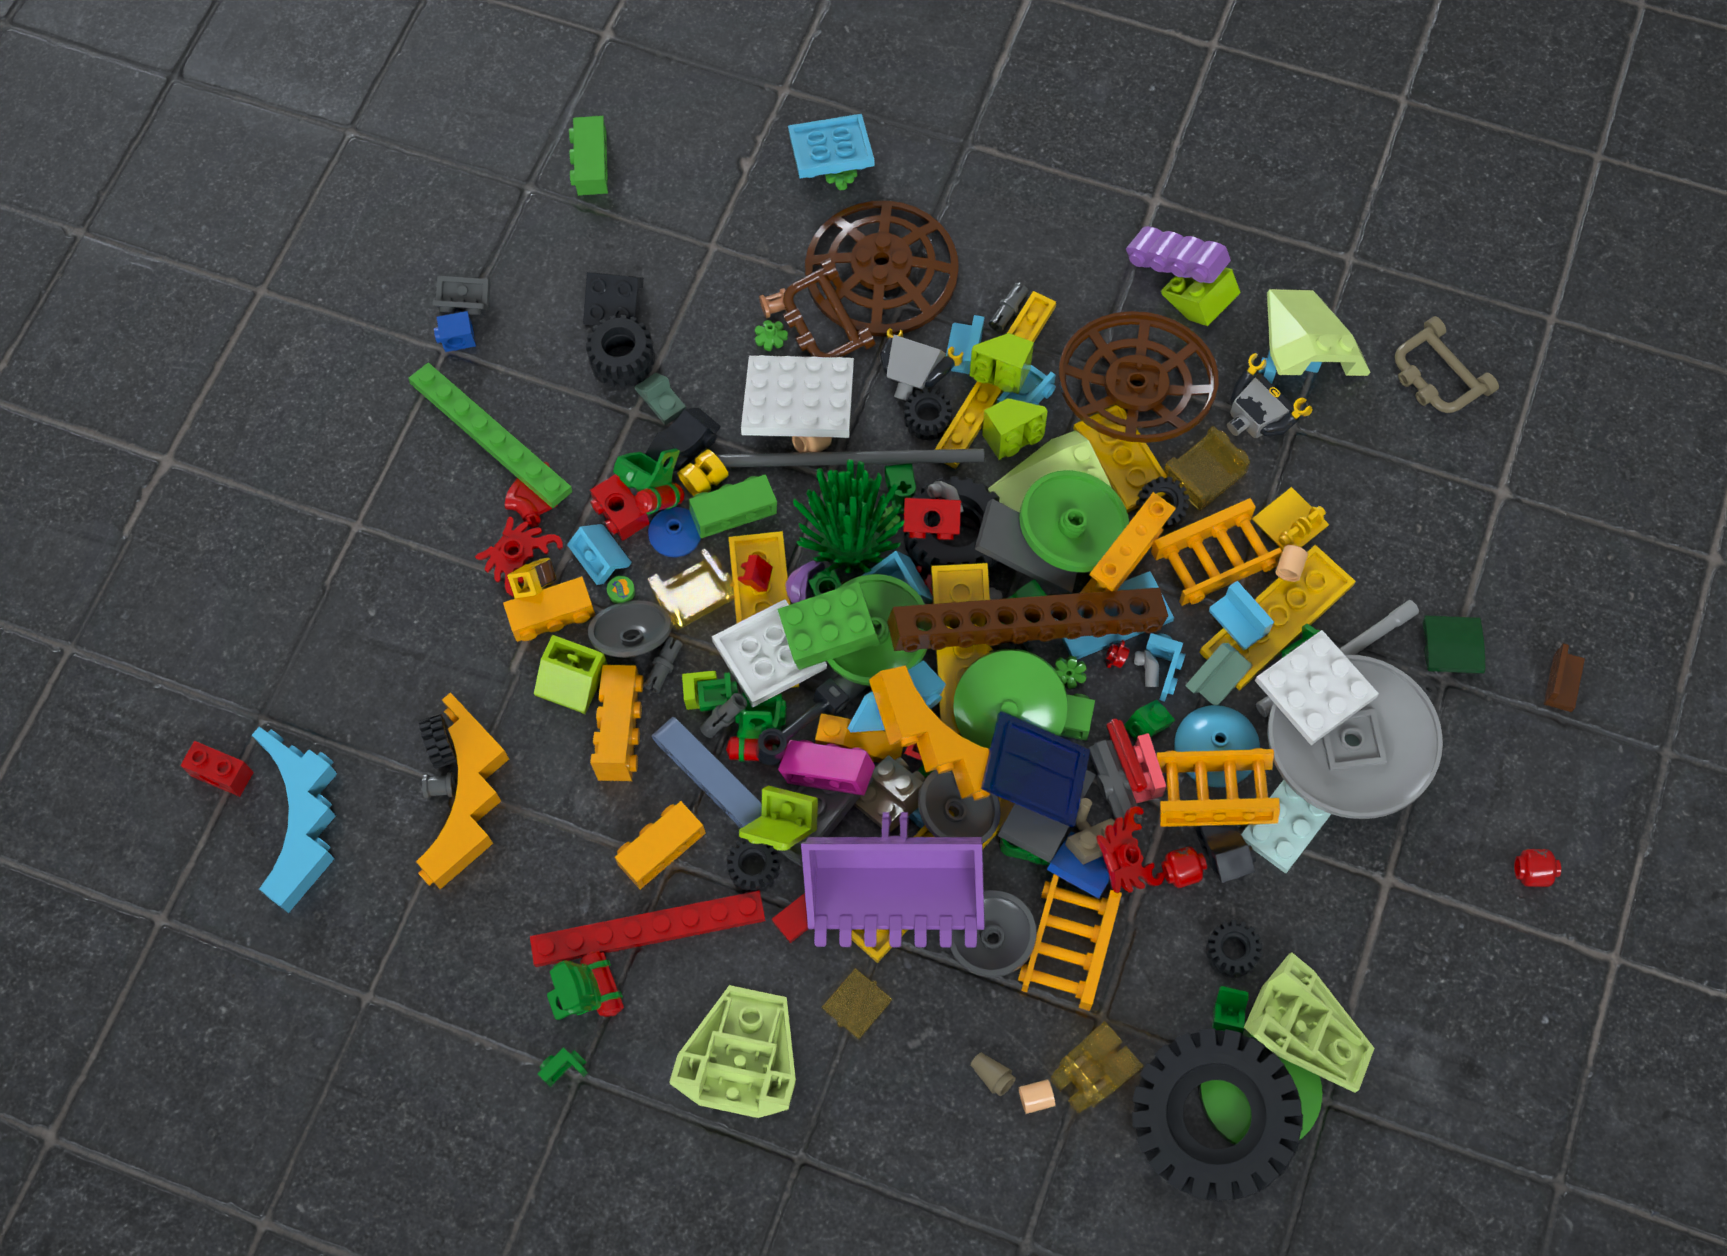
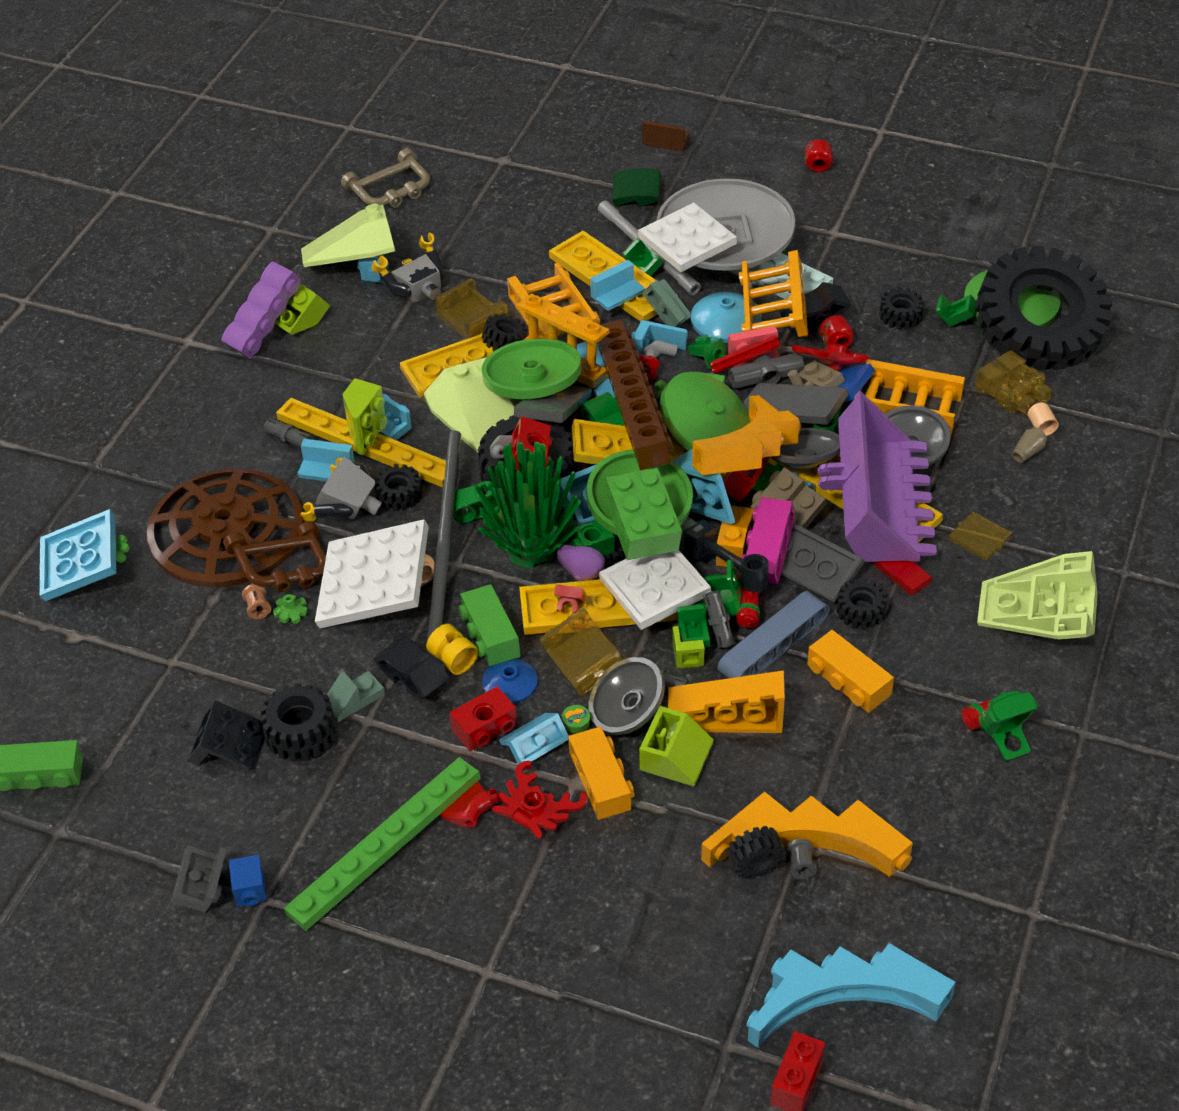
camera: 90 degrees left, 20 degrees down
(535, 577) = (575, 778): yellow leg -> none
(555, 1066) = (1079, 739): green bracket -> none
(647, 928) = (933, 687): red plate -> none
(650, 480) = (461, 678): green piece -> none
(784, 819) = (825, 566): lime bracket -> none
(1013, 425) = (425, 420): lime slope -> none
(1035, 769) = (768, 394): clear blue piece -> none
(1139, 368) = (370, 346): reddish brown dish -> none
(1291, 520) = (525, 264): yellow hinge -> none
(1291, 563) = (570, 256): light nougat beam -> none
(1308, 1025) = (958, 270): yellowish green wedge -> none

